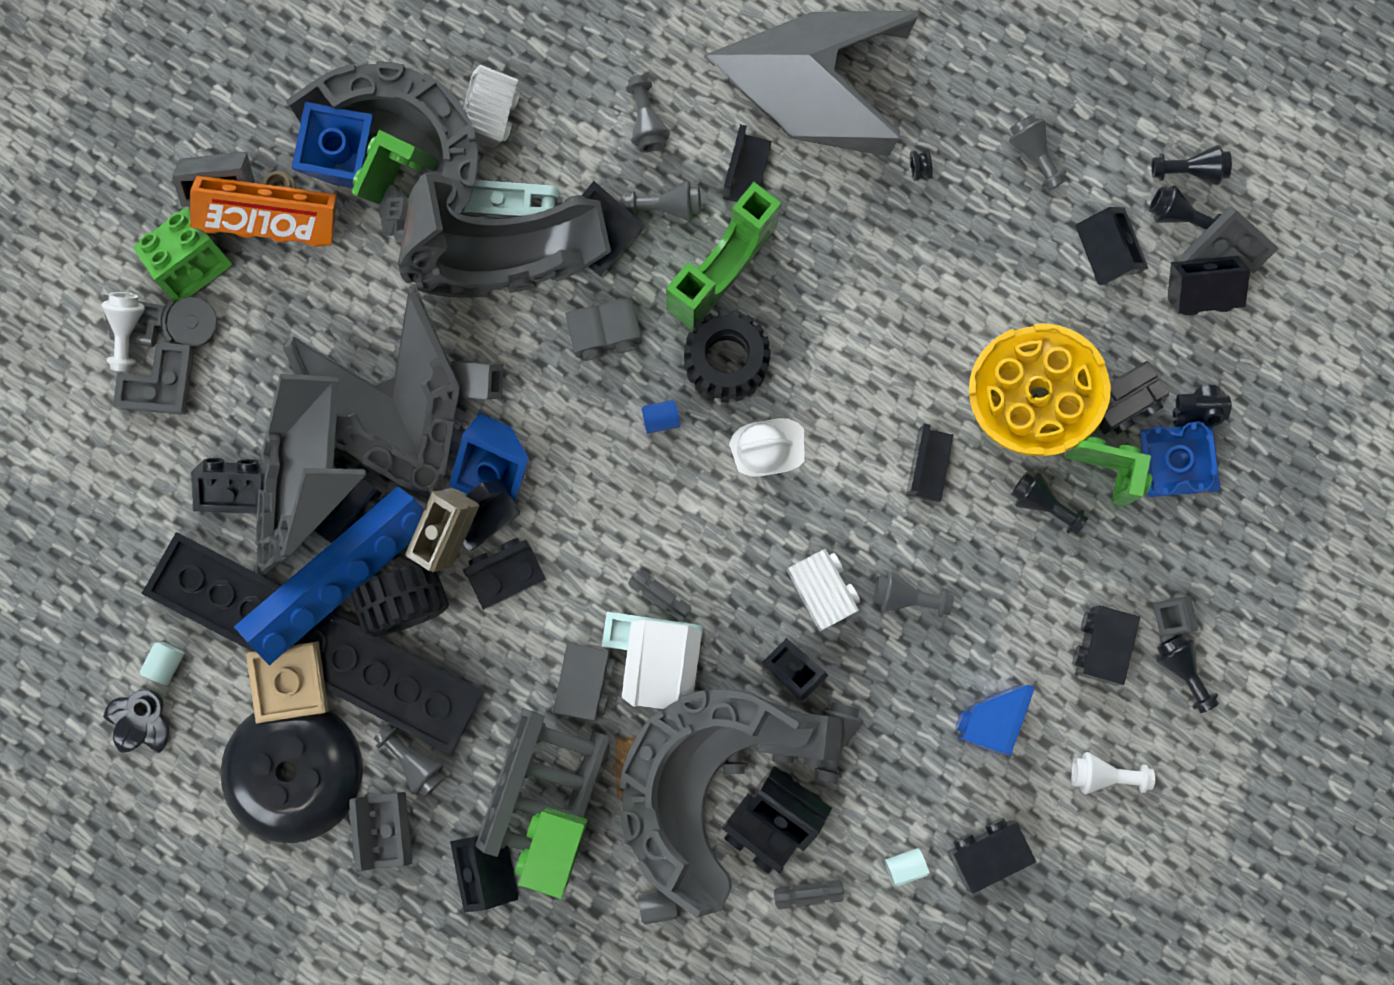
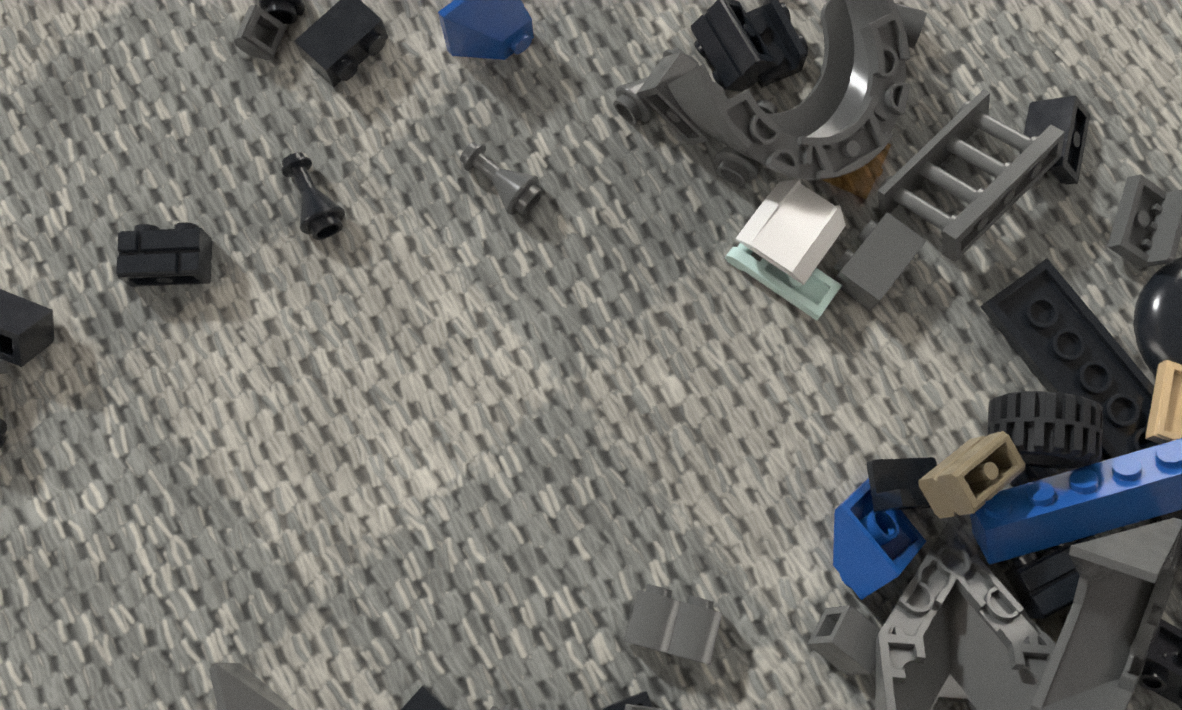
camera: 150 degrees left, 5 degrees down
(420, 771) = (1082, 259): dark grey piece -> none
(504, 573) = (908, 412): black bracket -> none
(552, 852) = (997, 96): bright green brick -> none
(659, 595) = (755, 308): dark grey axle -> none
(660, 416) = (659, 493): blue brick -> none
(698, 289) = (494, 631): bright green arch -> none
(730, 328) = (533, 486): black tyre -> none
(768, 447) = (560, 404): white piece -> none
(795, 670) = (656, 163): black slope -> none
(823, 589) = (586, 227): white brick -> none
(921, 164) = (211, 628): black bush -> none
(929, 464) = (405, 297): black panel -> none
(1030, 138) = (72, 590): dark grey piece -> none
(1046, 359) = (205, 294): yellow brick -> none
(1111, 245) = (70, 424): black panel -> none
(1132, 467) = (213, 173): bright green bracket -> none
(1181, 459) = (153, 171): blue slope -> none
(1203, 405) = (91, 207): black plate -> none

